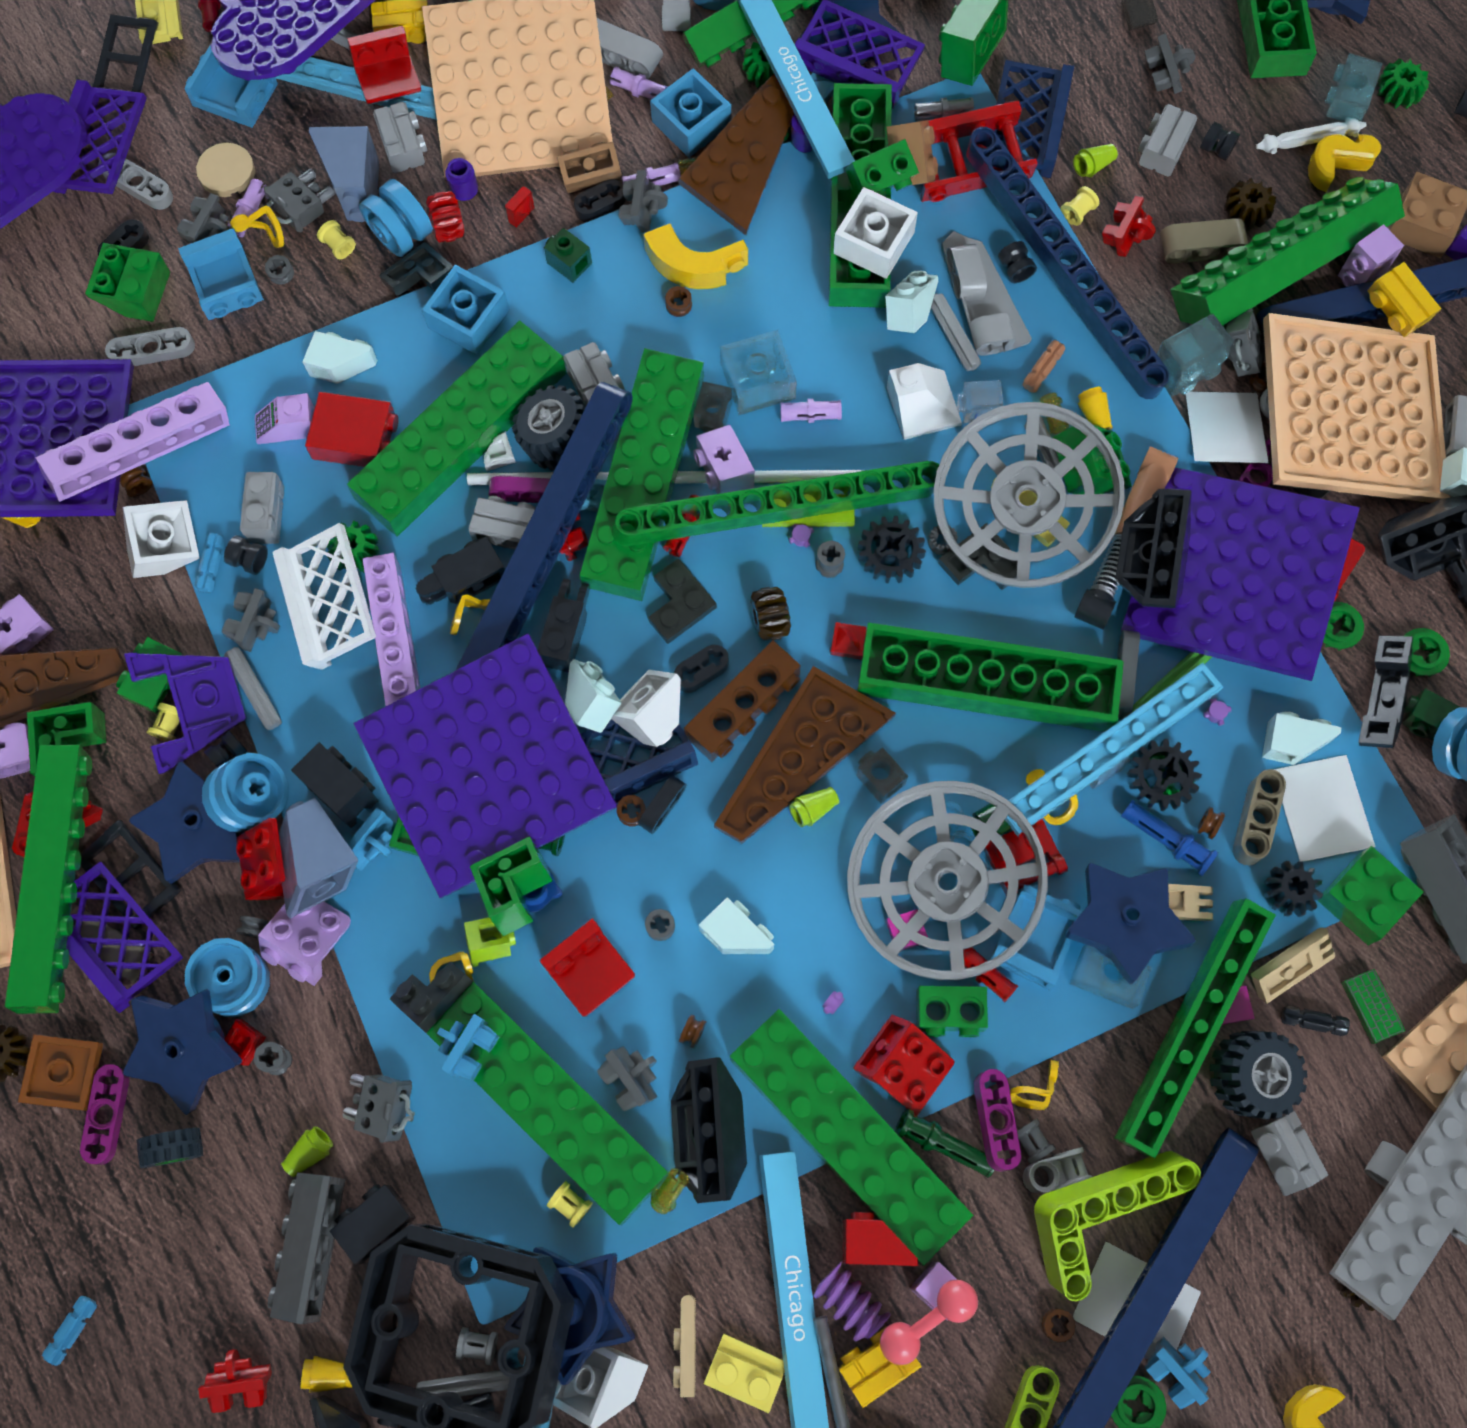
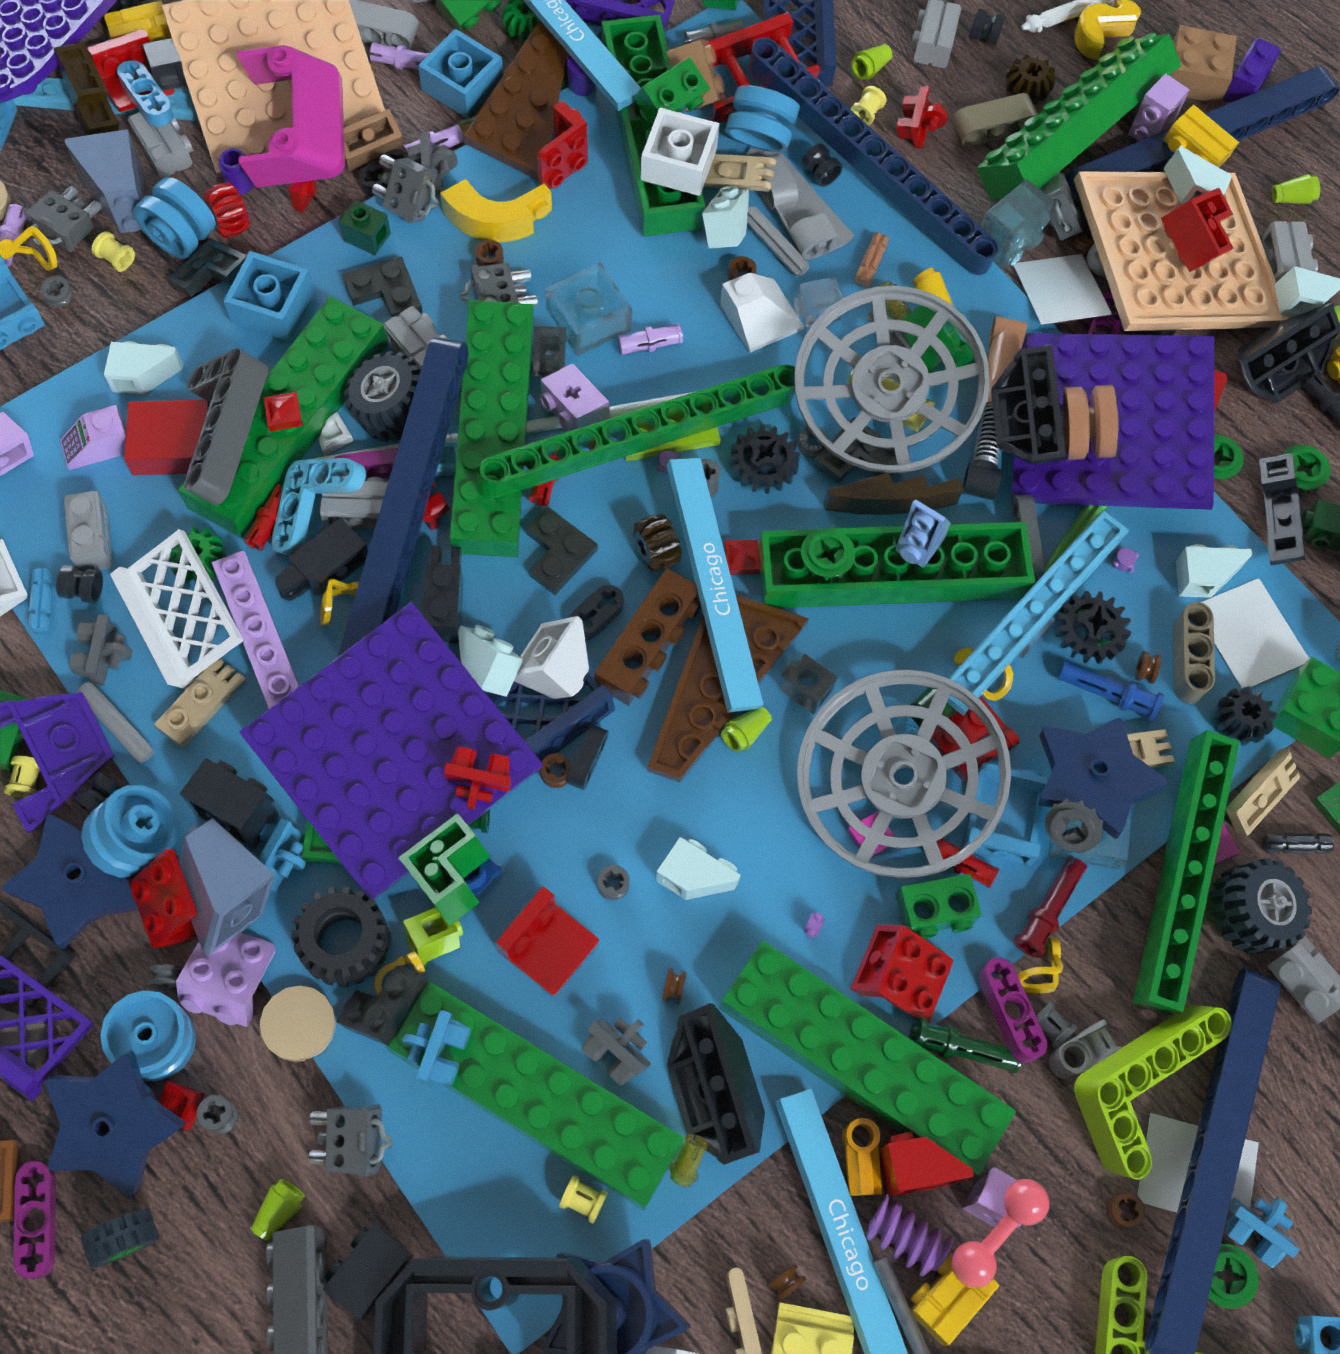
camera: 20 degrees left, 5 degrees down
(329, 685) = (199, 703): none -> tan hinge
(340, 80) = (86, 89): none -> dark brown slope
(356, 993) = (298, 1023): none -> tan tile
(386, 909) = (325, 912): none -> black tyre
(391, 99) = (145, 102): none -> dark azure beam
(414, 396) = (233, 389): none -> dark grey beam
(415, 63) = (165, 64): none -> black brick
(424, 522) = (265, 521): none -> red pin
(453, 427) = (283, 411): none -> red tile
(456, 501) = (306, 479): none -> medium azure beam
(539, 161) = (316, 141): none -> dark pink windscreen
(569, 810) = (462, 771): none -> red hips
(574, 309) = (383, 280): none -> pearl dark grey plate
(615, 224) = (408, 188): none -> dark grey piece
(676, 335) = (497, 284): none -> dark grey piece
(733, 1317) = (787, 1282): none -> reddish brown bush
(772, 211) = (567, 151): none -> red bracket
(813, 665) = (714, 585): none -> medium azure tile
(826, 1227) = (862, 1162): none -> light orange piece
(914, 348) = (741, 263): none -> reddish brown bush
(931, 645) = (832, 541): none -> green gear
(933, 258) = (740, 172): none -> tan hinge
(969, 204) = (762, 118): none -> dark azure wheel
(994, 607) = (882, 497): none -> dark brown slope
(1016, 656) = (921, 534): none -> light blue slope
(1048, 1043) = (1044, 919): none -> dark red pin
(1092, 976) = (1075, 838): none -> dark grey gear
(1210, 575) = (1092, 422): none -> nougat wheel
(1372, 394) = (1198, 230): none -> red brick
(1387, 341) = (1194, 175): none -> light aqua slope

